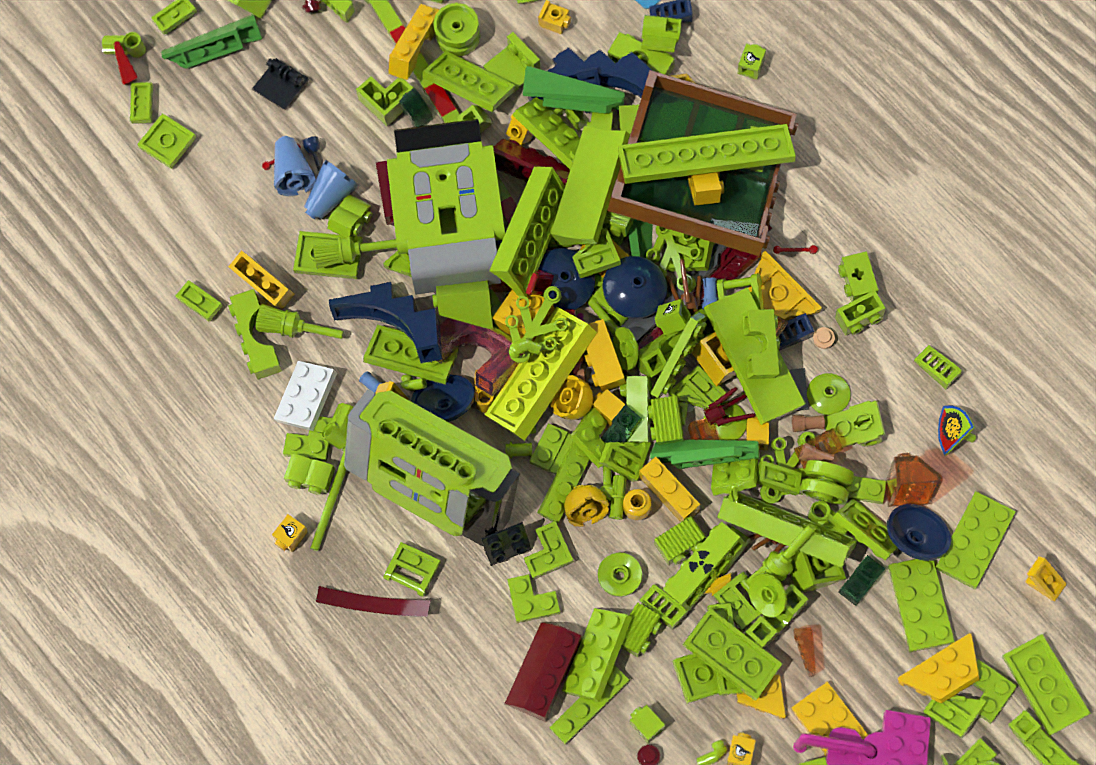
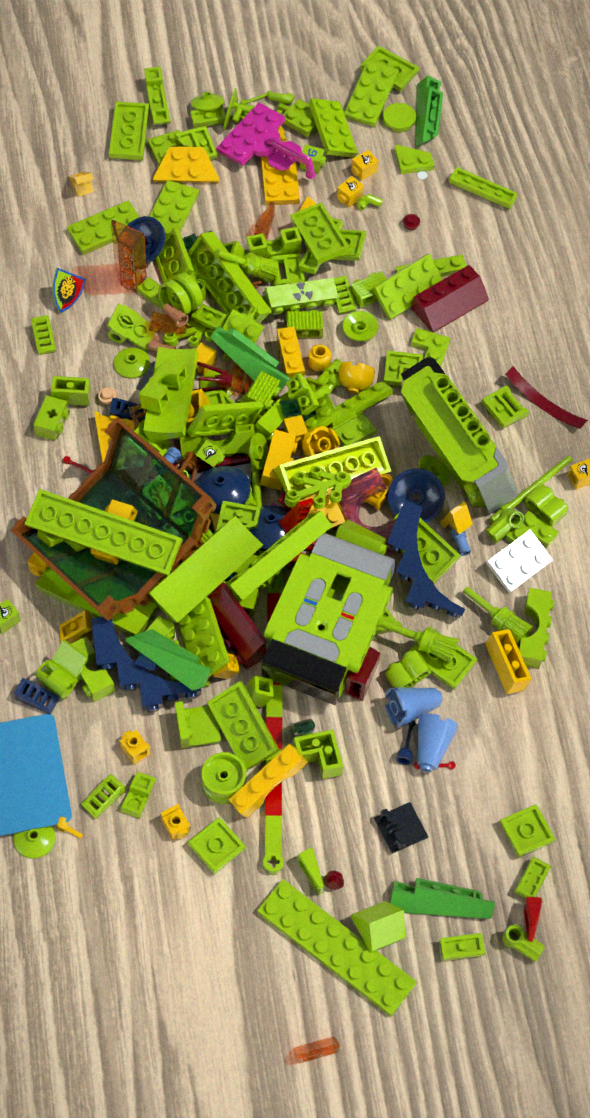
camera: 160 degrees left, 10 degrees down
(198, 300) = (567, 680): lime plate -> none
(412, 385) = (432, 522): lime arm -> none
(518, 449) = (385, 441): lime pin -> none
(522, 345) = (338, 473): lime arm -> none
(629, 440) = (301, 390): none -> lime slope
(646, 723) = (400, 236): lime brick -> none
(767, 595) = (271, 249): lime dish -> none

